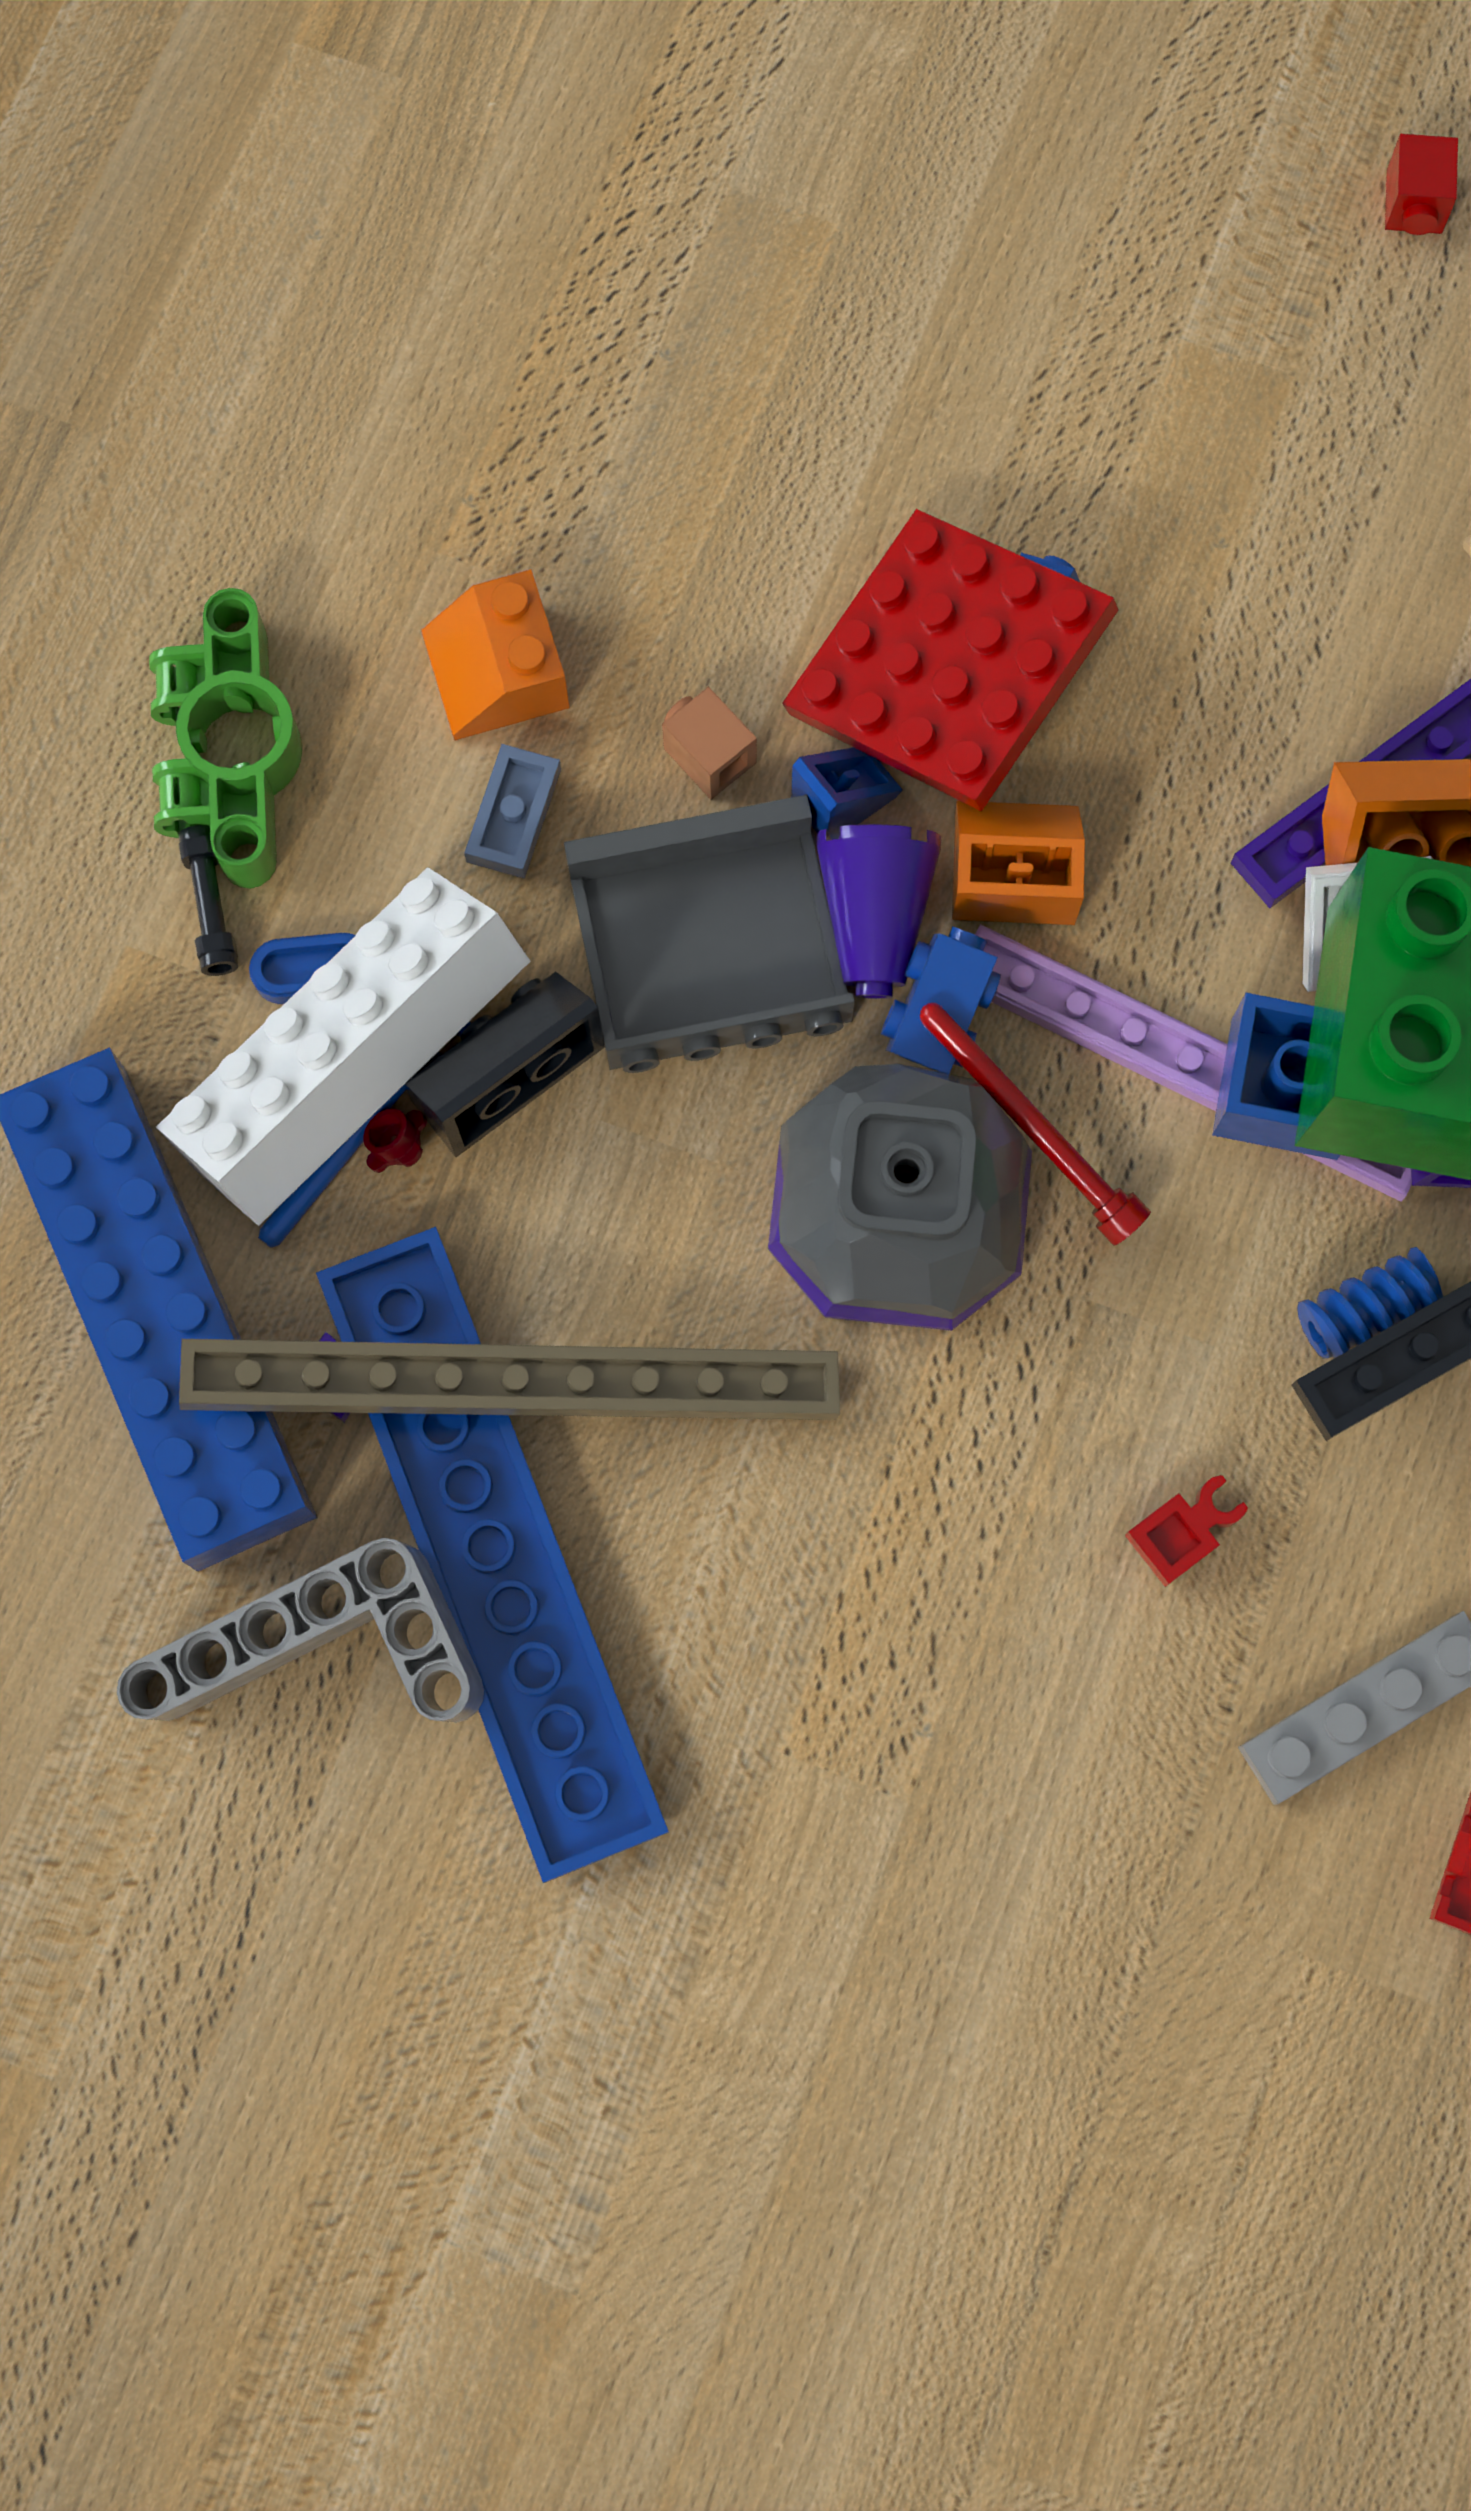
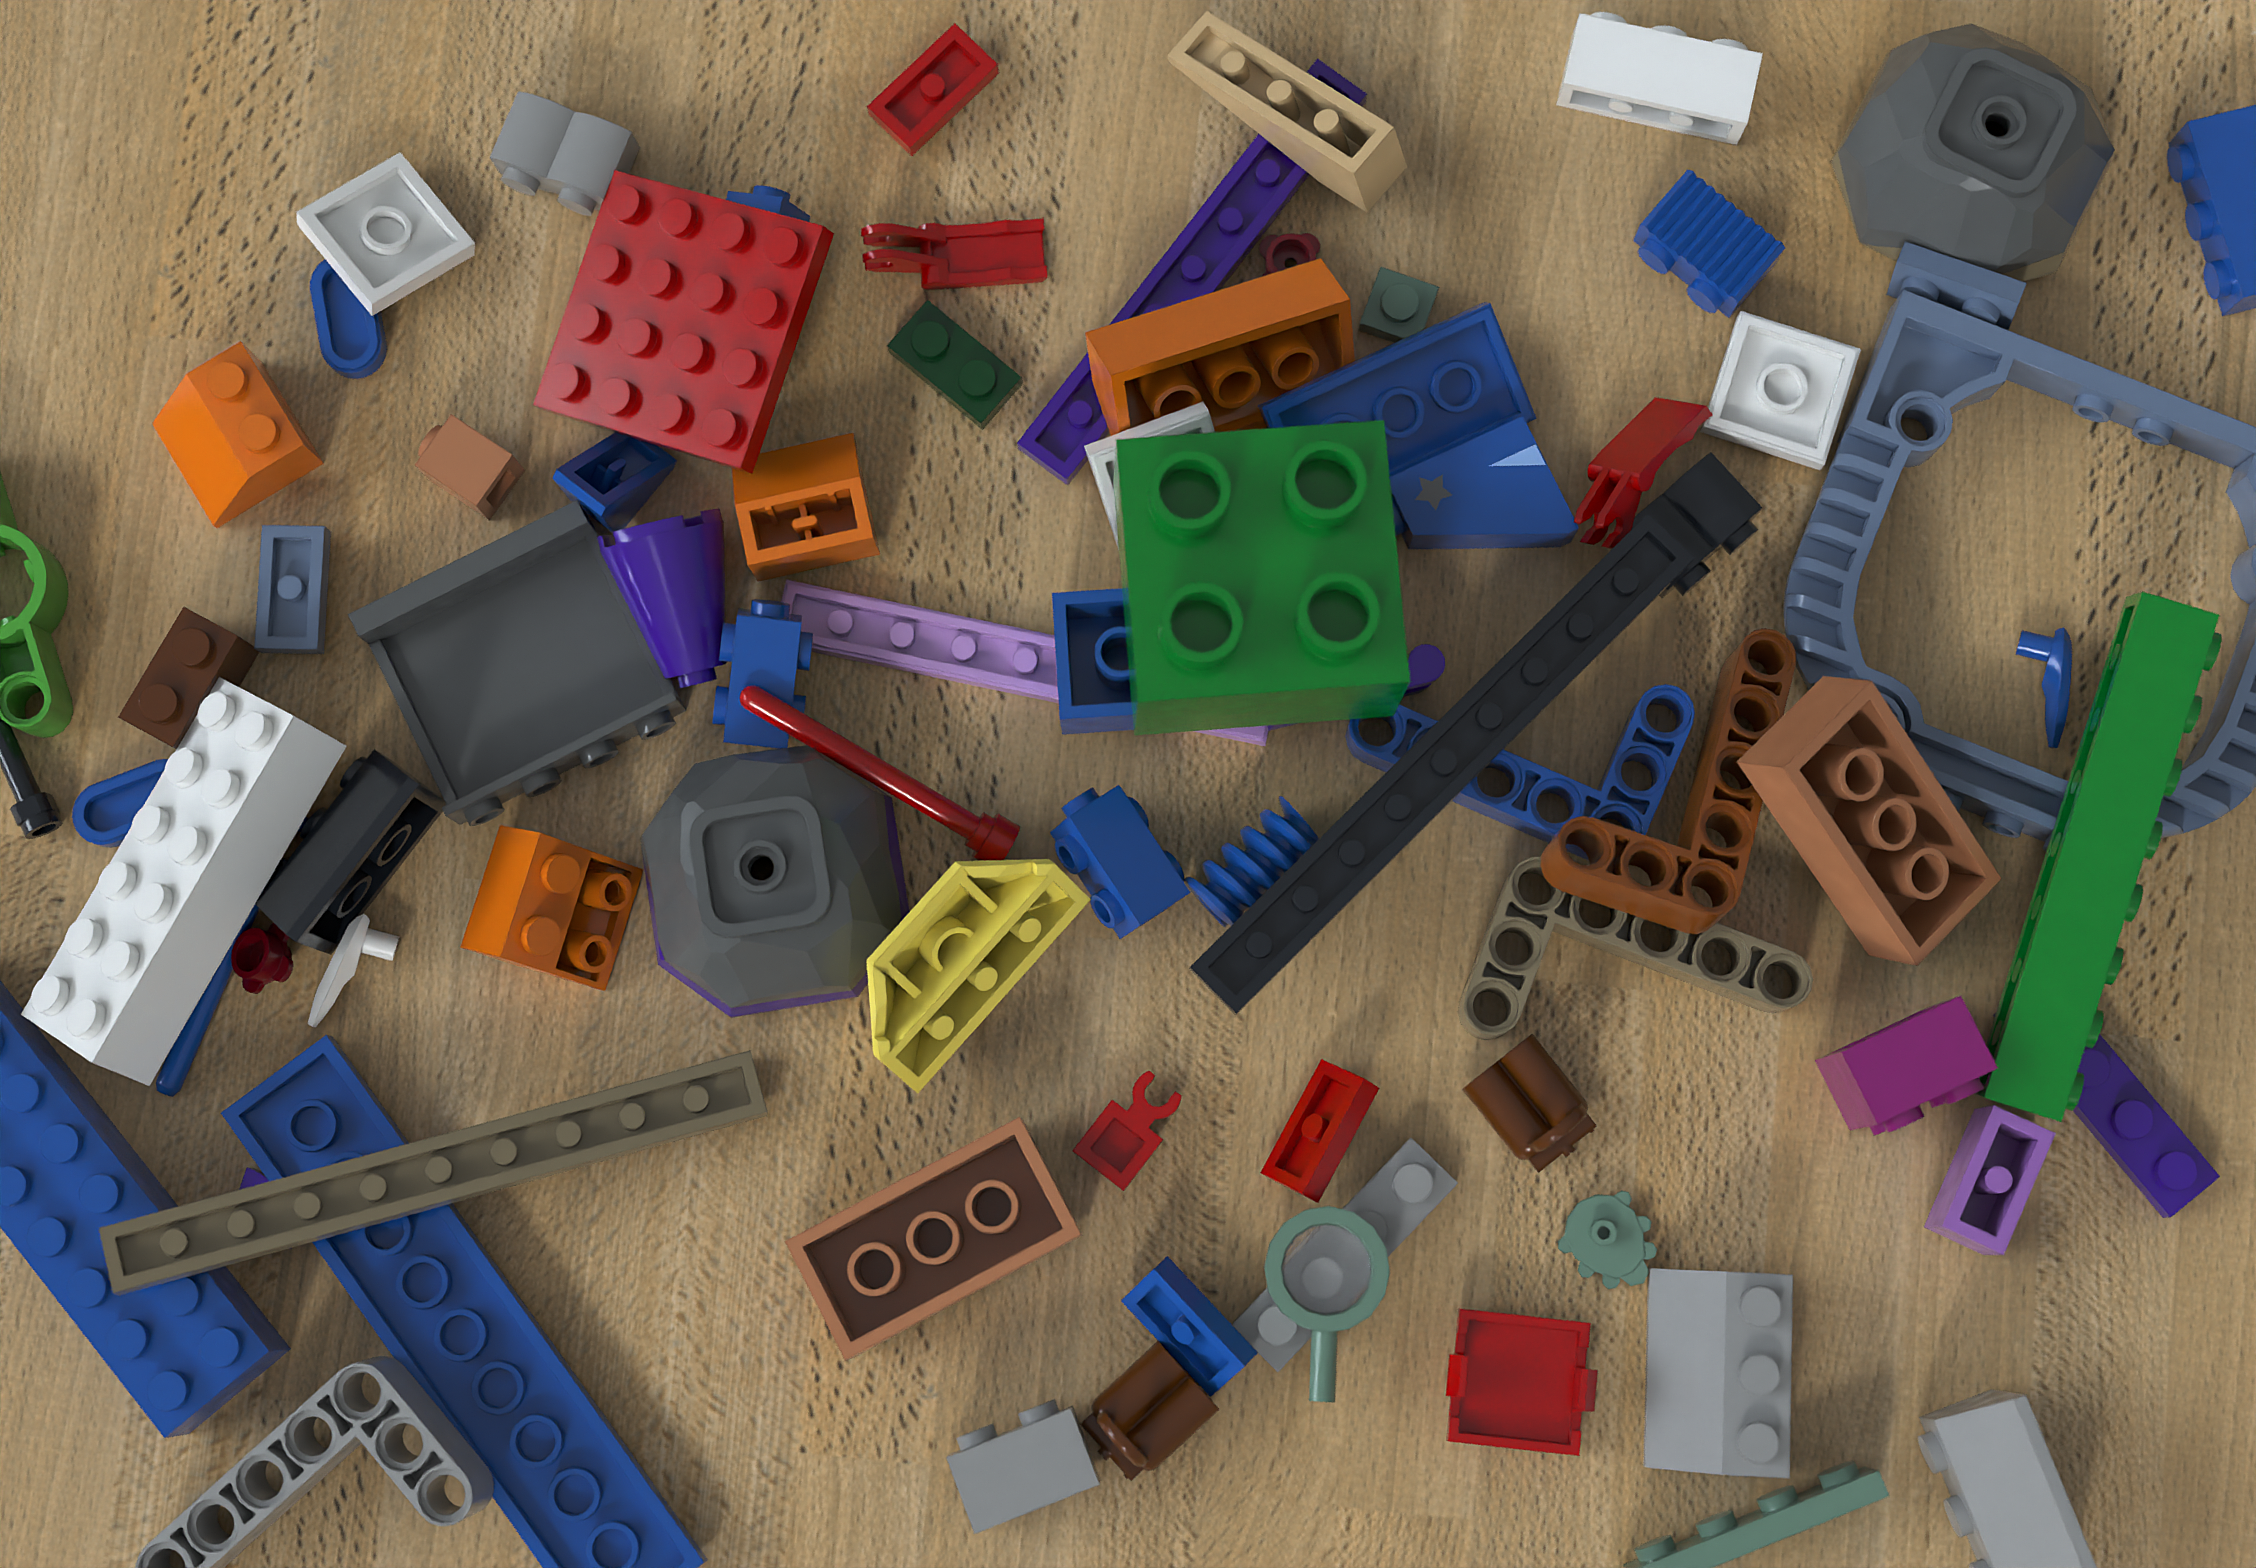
camera: 10 degrees left, 5 degrees up
(391, 858) = (184, 675): none -> reddish brown brick
(466, 1169) = (343, 965): none -> white bar
(629, 582) = (347, 333): none -> blue tile
(681, 1165) = (552, 907): none -> orange slope
(687, 513) = (385, 233): none -> white plate
(869, 483) = (561, 152): none -> light grey brick
(977, 1577) = (933, 1238): none -> nougat brick
(1007, 1824) = (1022, 1467): none -> light grey brick
(1072, 1313) = (962, 957): none -> light yellow wedge
(1140, 1808) = (1148, 1413): none -> reddish brown piece
(1188, 771) = (955, 364): none -> dark green plate
(1202, 1734) = (1189, 1326): none -> blue plate
(1217, 673) = (960, 254): none -> red arm
(1230, 517) = (933, 89): none -> red plate
(1240, 1265) = (1118, 859): none -> blue brick
(1355, 1721) = (1326, 1277): none -> piece
(1375, 1579) = (1319, 1130): none -> red plate

